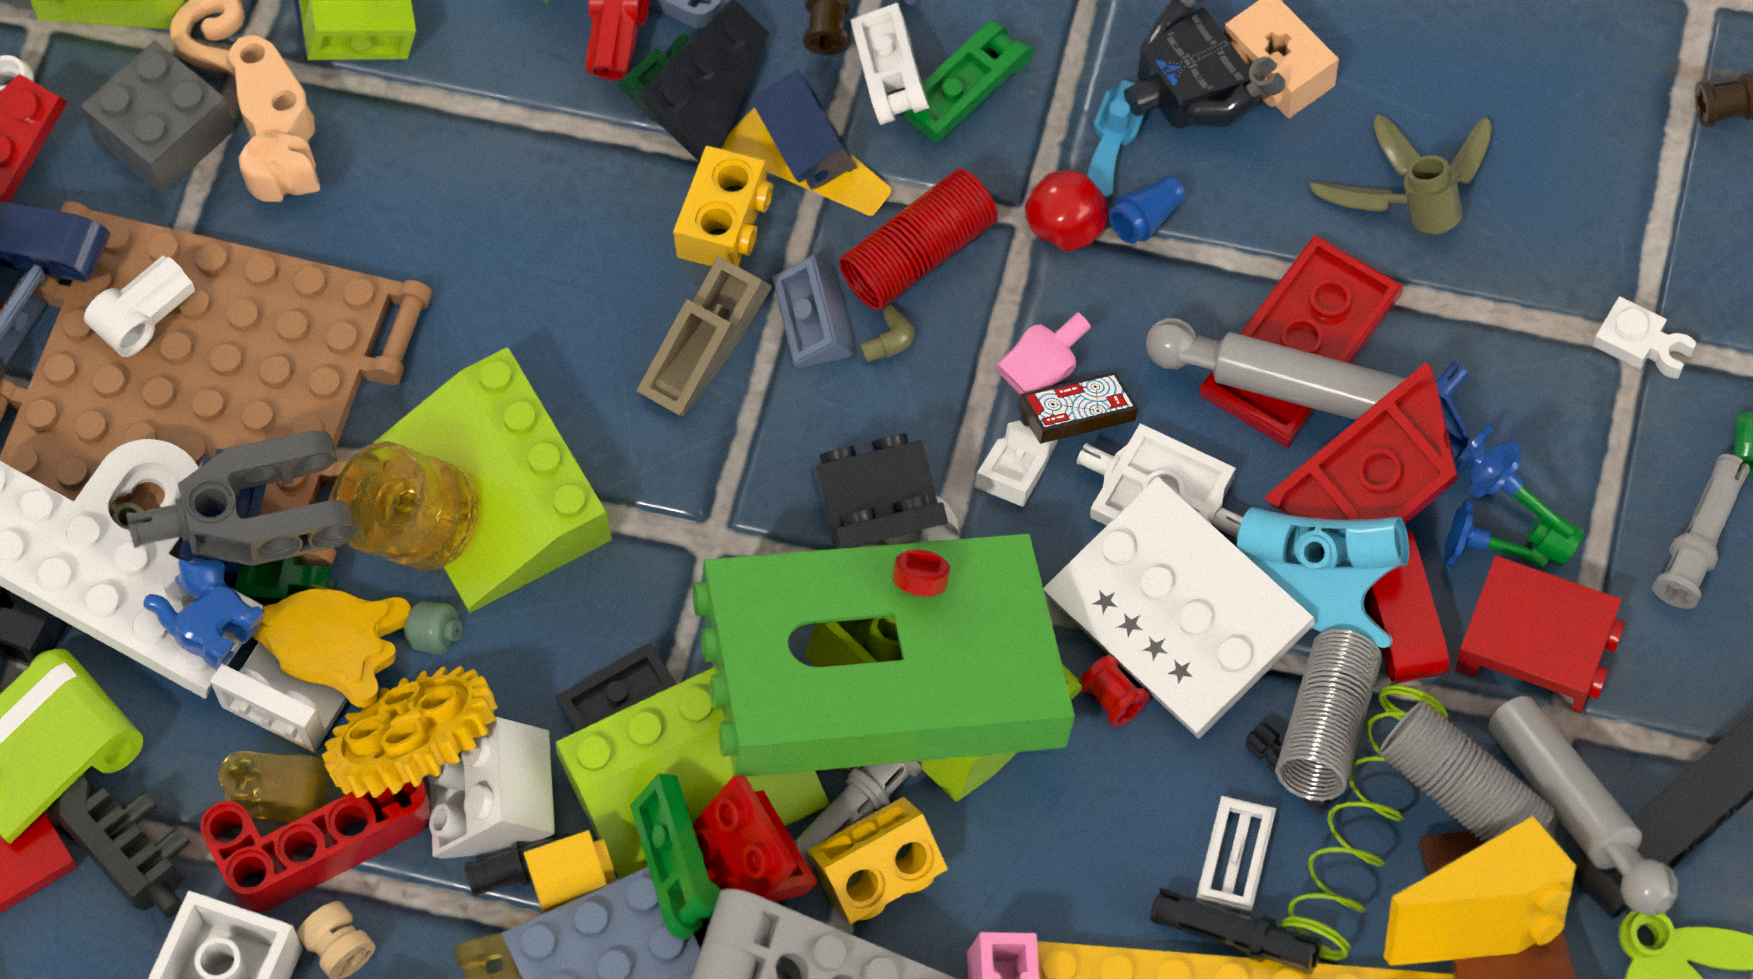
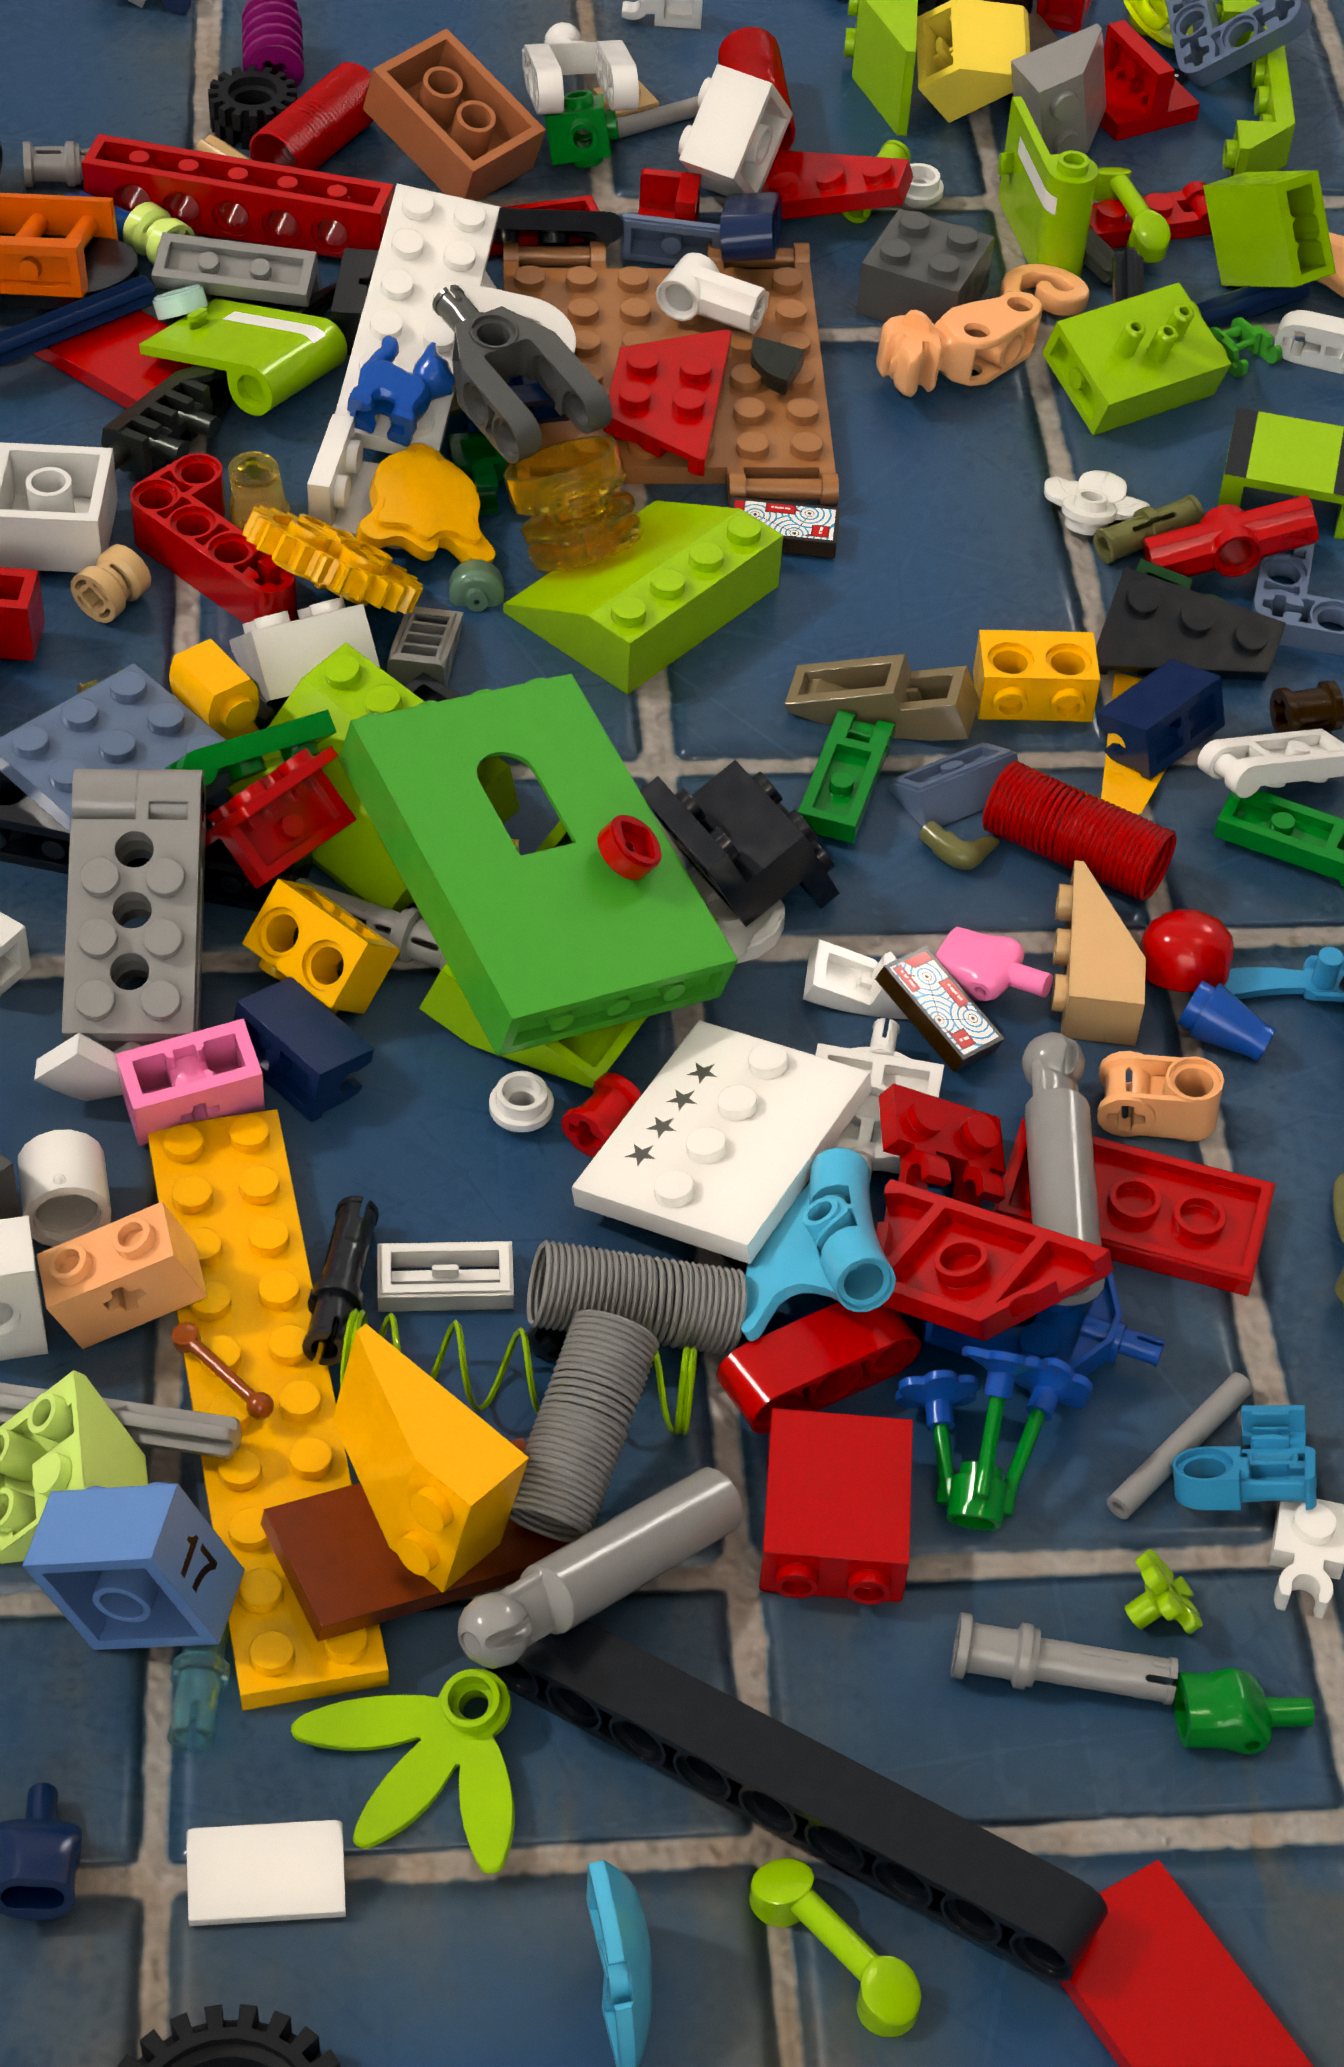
camera: 65 degrees right, 15 degrees down
(250, 282) = (776, 363): none -> pearl dark grey tile
(259, 384) = (670, 395): none -> red wing
(448, 344) = (805, 527): none -> tile
(506, 88) = (1092, 500): none -> white plate
(530, 676) = (425, 644): none -> light grey slope
(562, 58) = (1146, 522): none -> olive pin
(786, 393) = (846, 776): none -> green plate
(971, 900) = (303, 1047): none -> dark blue hinge
(1059, 276) = (1102, 965): none -> tan slope
(1087, 739) = (521, 1102): none -> white plate
(1209, 289) = (1165, 1098): none -> light nougat piece
(1219, 447) = (943, 1139): none -> red plate
(1531, 388) = (1188, 1435): none -> light grey piece
(1583, 337) = (1272, 1470): none -> dark azure piece
(1668, 445) = (1162, 1596): none -> lime plant

